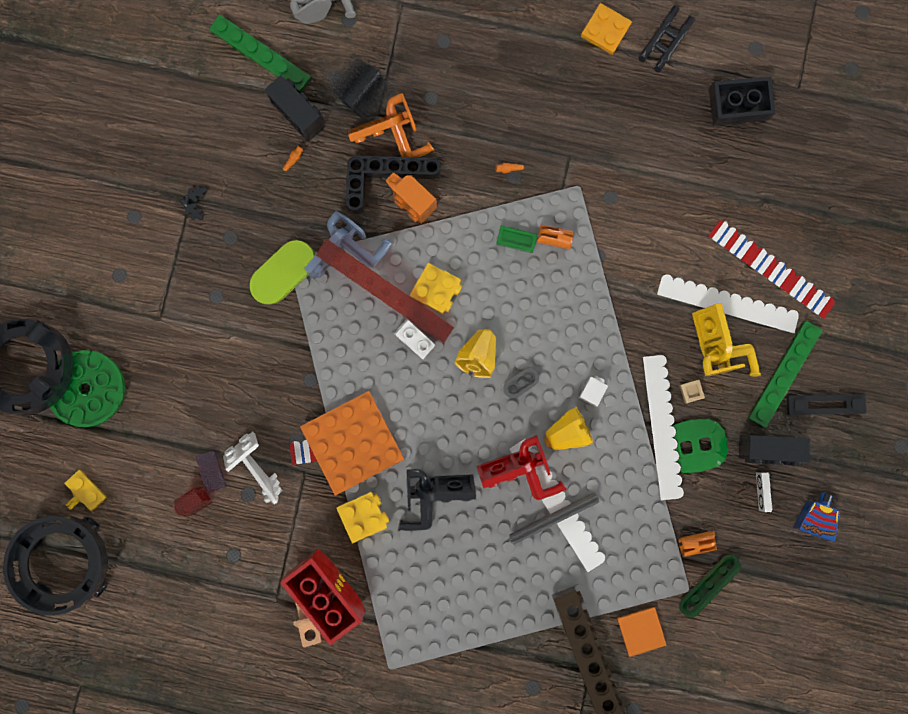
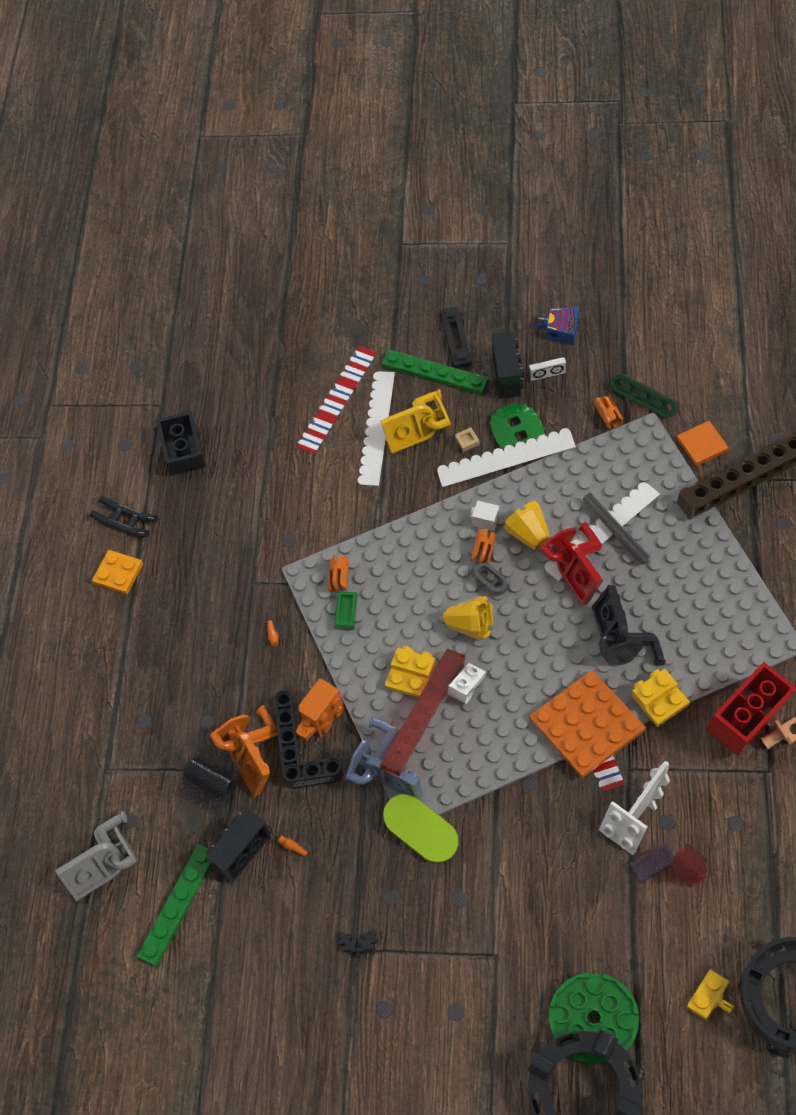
camera: 90 degrees left, 25 degrees down
(557, 382) = (483, 546): none -> orange arm

